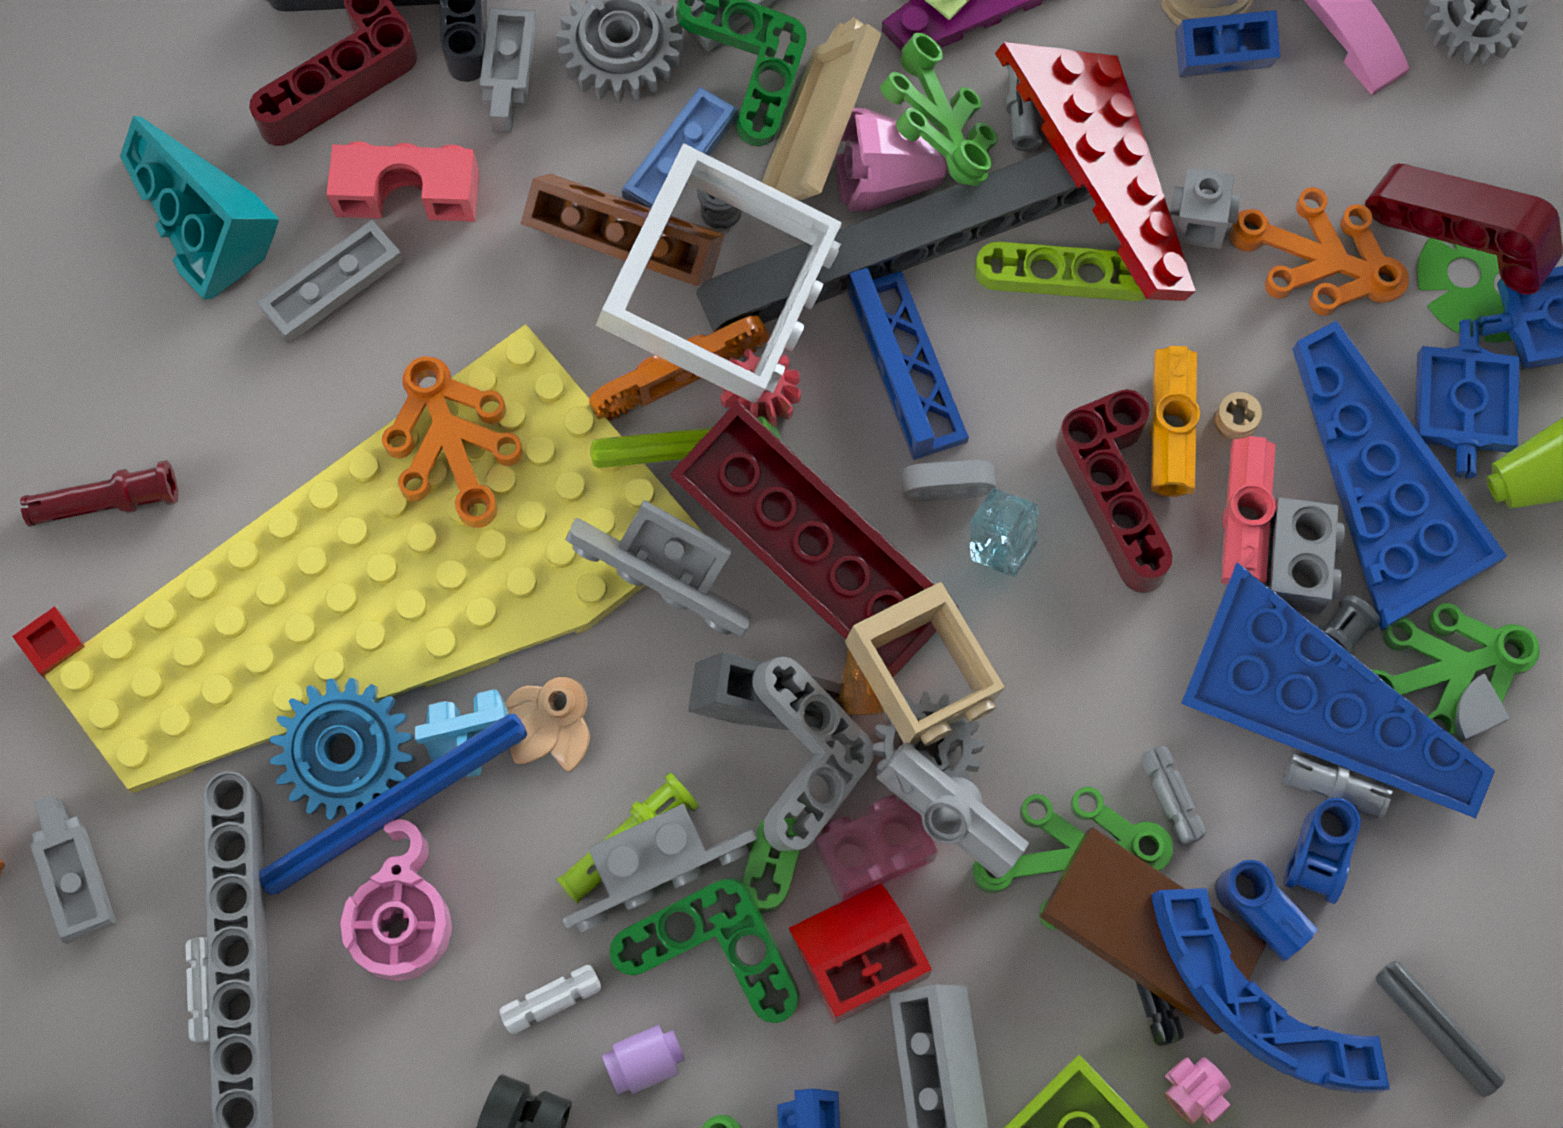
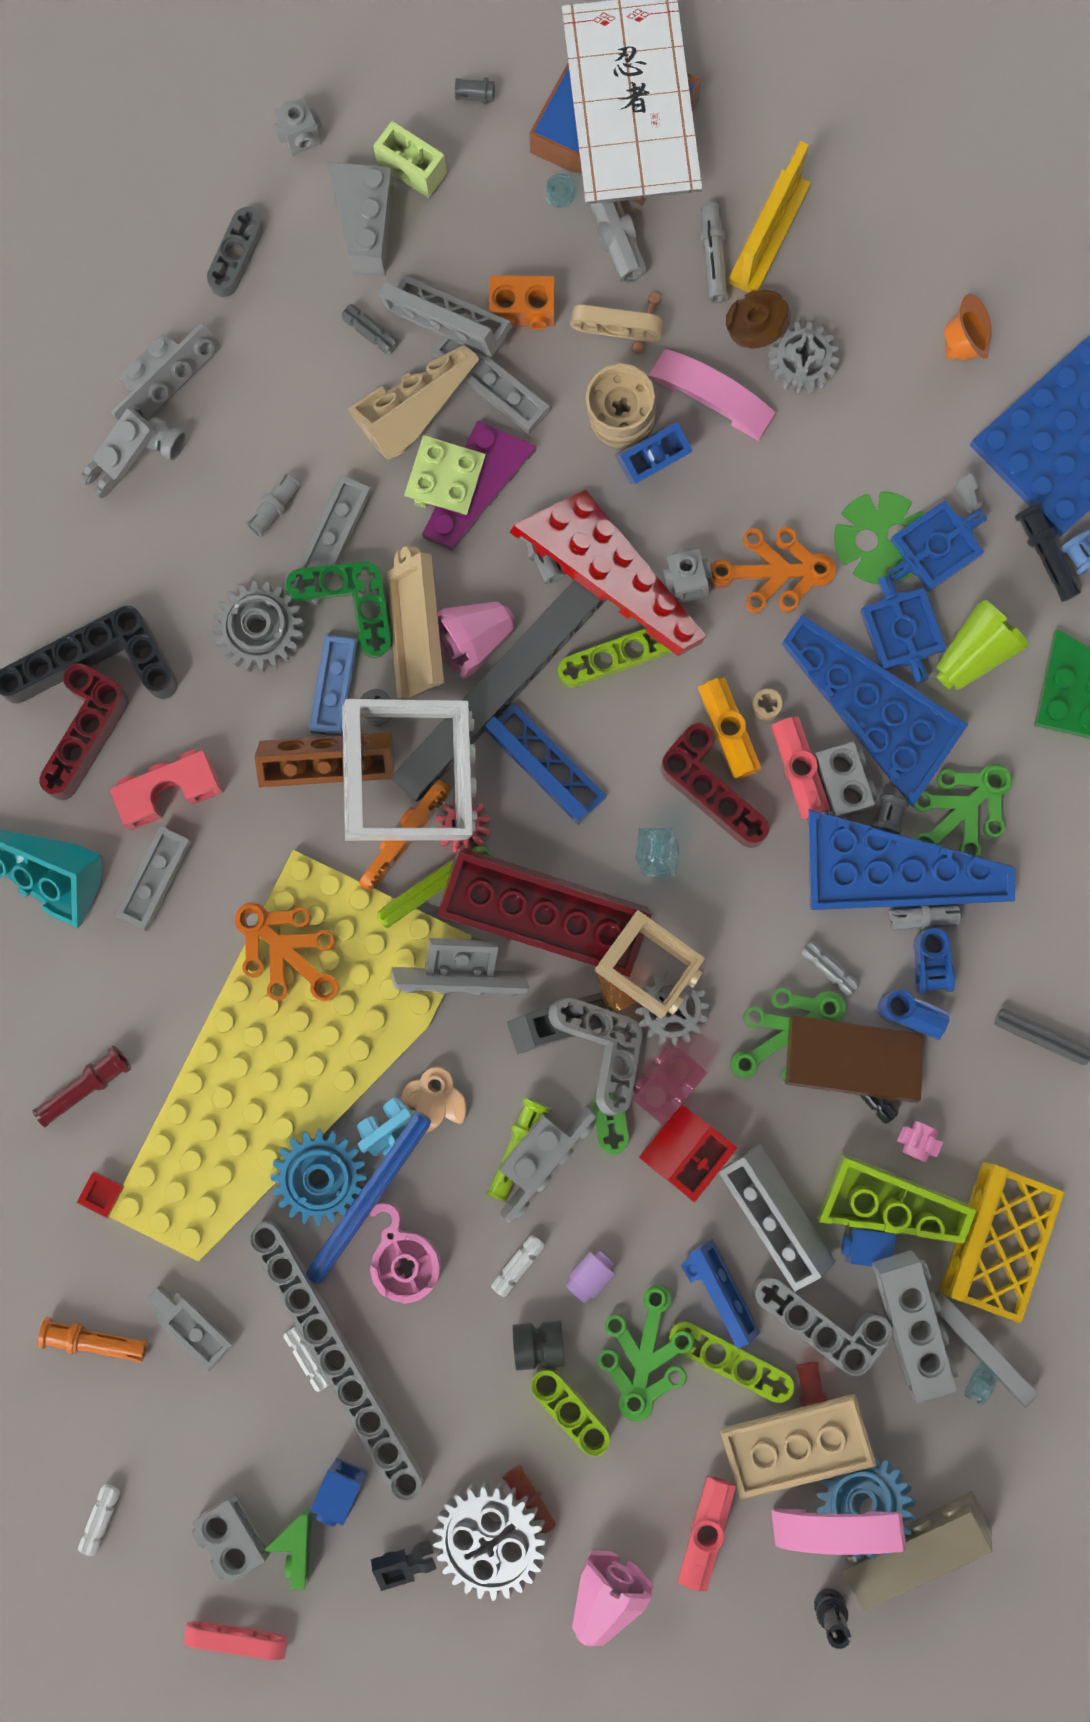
camera: 20 degrees left, 10 degrees up
(507, 63) = (191, 674): light grey hinge -> none
(728, 932) = (602, 1176): green beam -> none
(948, 480) = (607, 831): light grey beam -> none
(966, 158) = (523, 614): bright green plant -> none
(971, 827) = (706, 1045): light grey piece -> none
(1249, 1014) = (933, 1083): blue tile -> none
(1474, 215) = (858, 509): dark red beam -> none
(1478, 709) = (989, 831): light grey tile -> none

